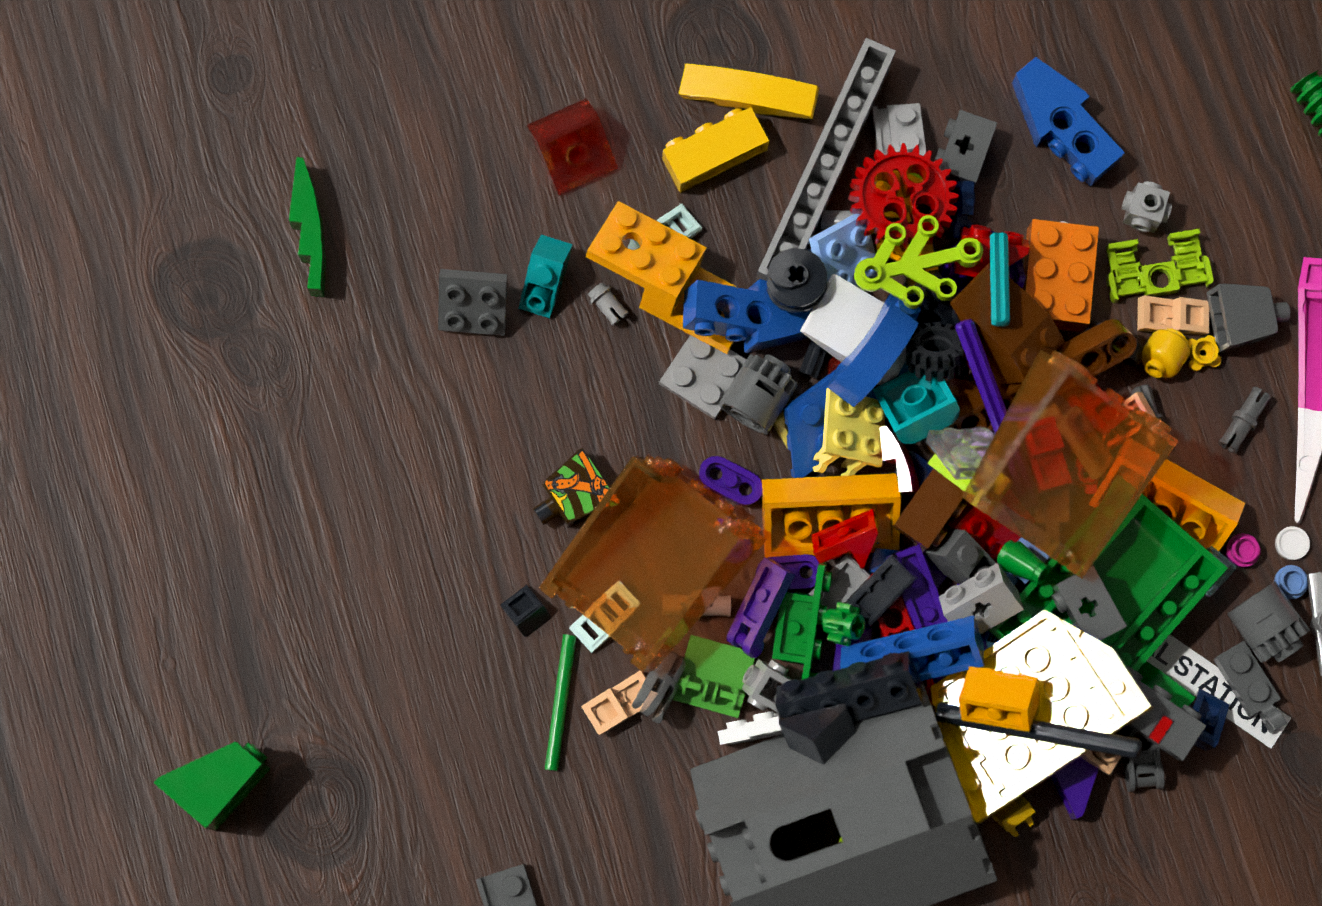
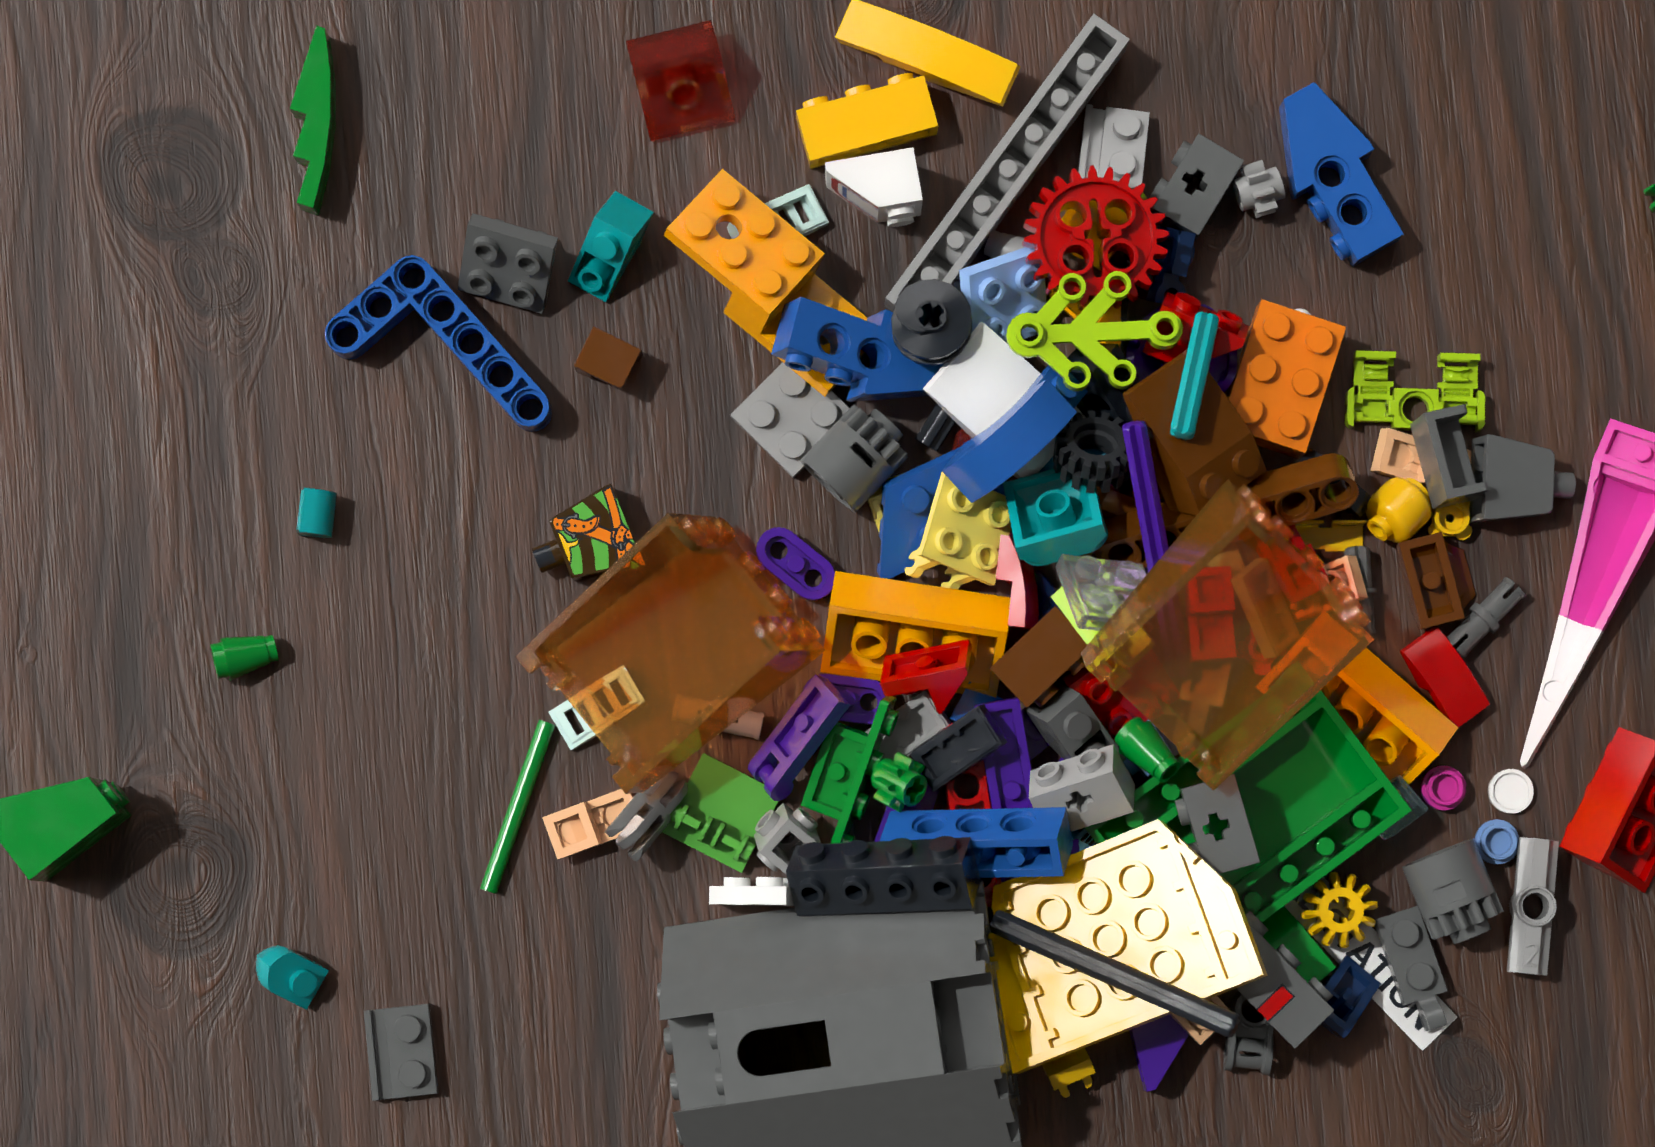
camera: 15 degrees right, 5 degrees up
(331, 630) = (242, 655): none -> green cone
(366, 514) = (316, 513): none -> teal brick
(414, 863) = (289, 974): none -> teal plate
(439, 362) = (450, 332): none -> blue beam
(526, 611) = (497, 679): black slope -> none
(560, 357) = (607, 358): none -> reddish brown panel
(606, 302) = (683, 296): light grey pin -> none
(734, 192) = (879, 185): none -> white slope
(819, 732) = (834, 918): black slope -> none
(999, 698) = (1073, 922): light orange brick -> none
(1011, 142) = (1258, 188): none -> light grey gear
(1123, 383) = (1332, 539): none -> yellow piece
(1141, 216) = (1408, 324): light grey brick -> none
(1191, 307) = (1445, 457): none -> dark grey panel
(1196, 648) = (1352, 902): none -> yellow gear
(1201, 399) = (1435, 579): none -> reddish brown slope
(1227, 467) = (1445, 675): none -> red slope

